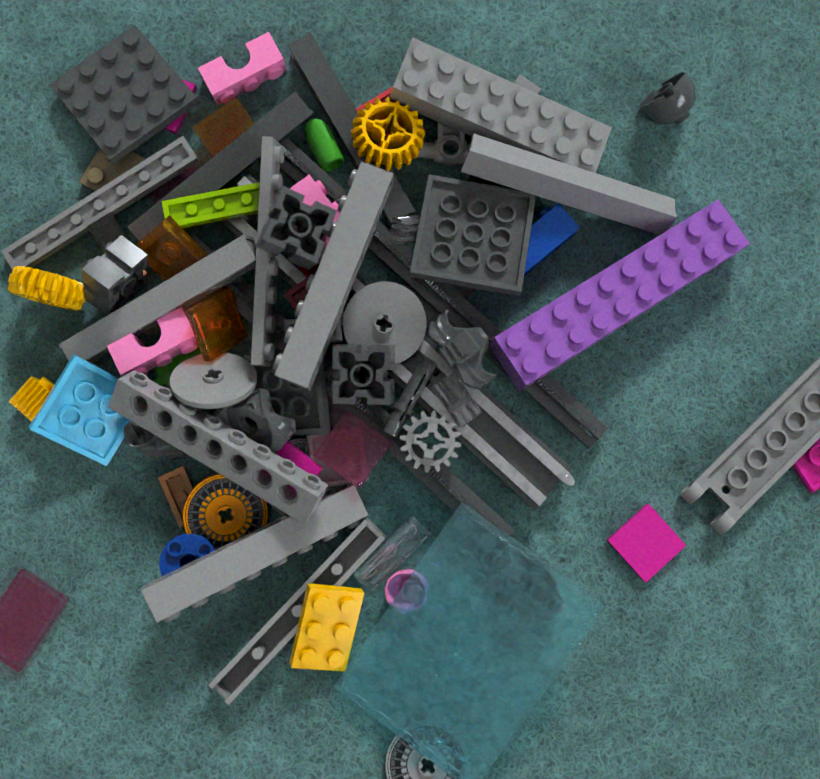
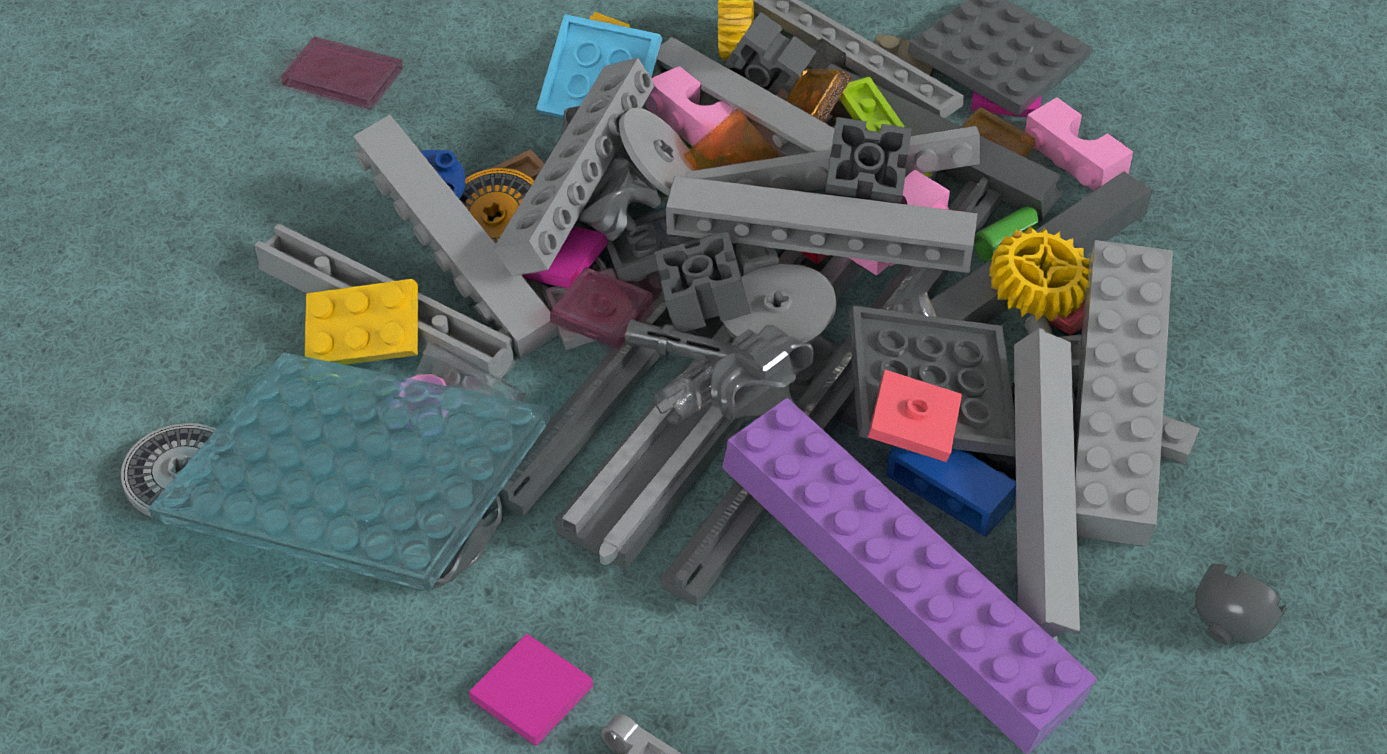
camera: 80 degrees right, 35 degrees down
(411, 439) = (608, 368): light grey gear -> none
(516, 254) = (915, 416): none -> coral plate

